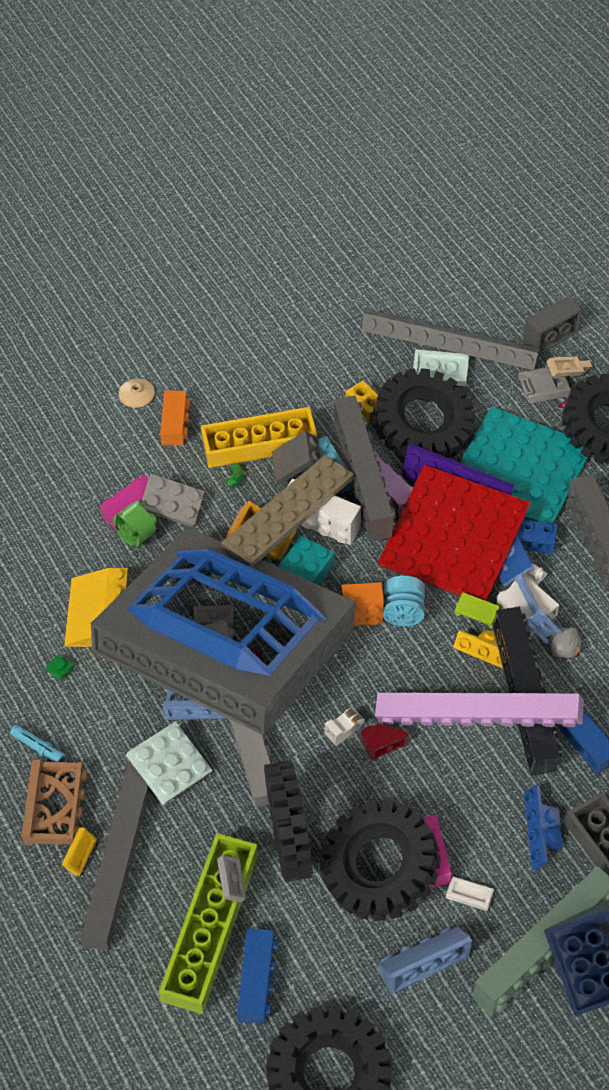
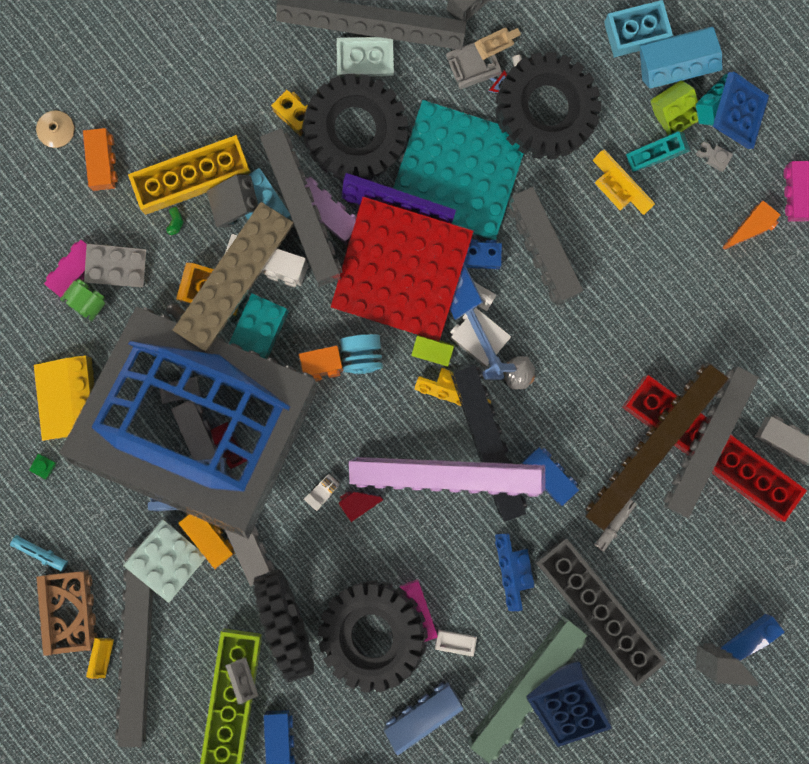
camera: 15 degrees left, 30 degrees up
(217, 751) = (208, 540): none -> light orange brick

